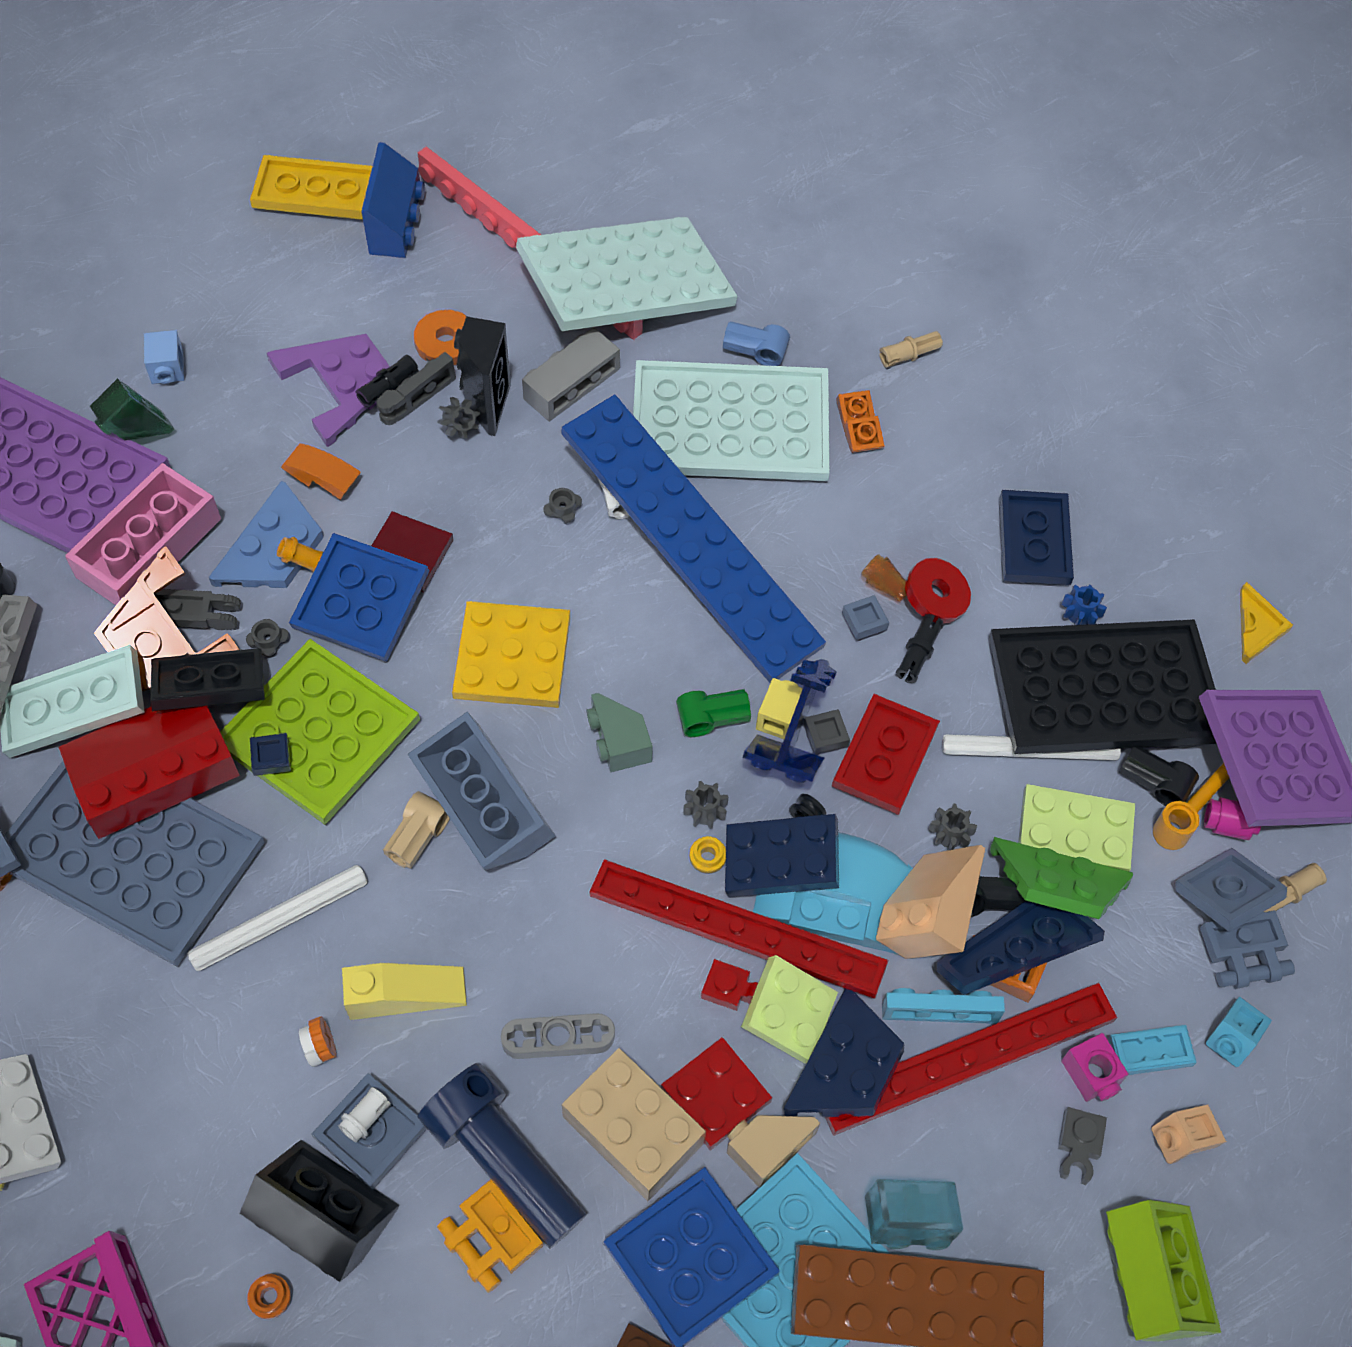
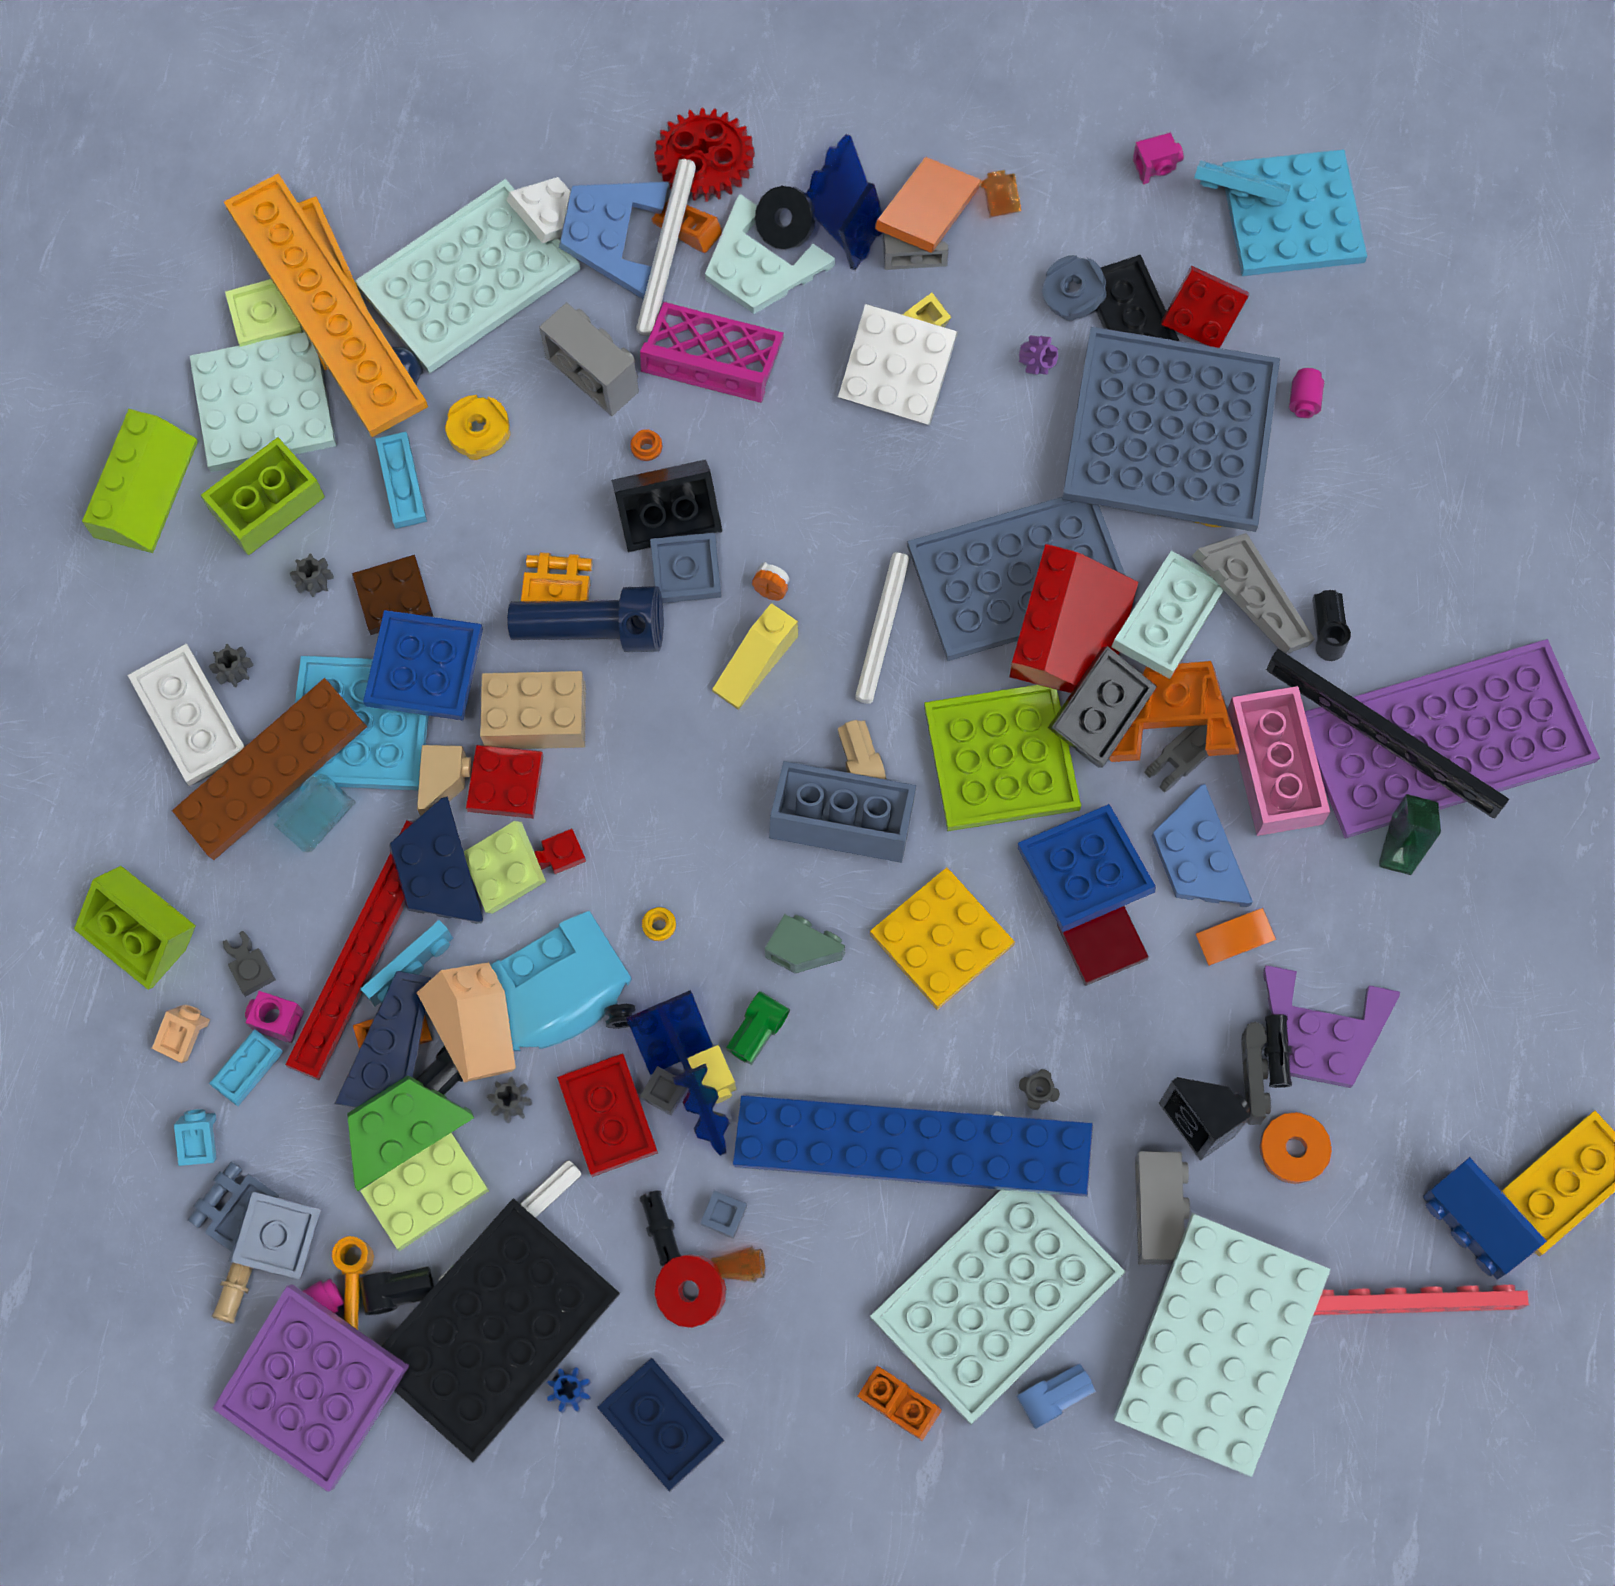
camera: 140 degrees right, 10 degrees up
(55, 485) = (1387, 734): none -> black tile
(163, 357) = (1461, 908): light blue brick -> none
(266, 628) = (1121, 778): dark grey plate -> none
(270, 754) = (1005, 705): dark blue tile -> none
(292, 551) = (1167, 848): light orange pin -> none
(363, 1115) = (692, 563): white pin -> none
(465, 422) = (1194, 1070): dark grey gear -> none
(586, 1024) = (612, 734): light grey beam -> none
(698, 799) = (683, 954): dark grey gear -> none
(739, 928) = (588, 891): red tile -> none
(782, 856) = (604, 962): dark blue plate -> none
(910, 348) = (930, 1526): tan axle -> none
(1259, 623) = (421, 1522): yellow tile -> none

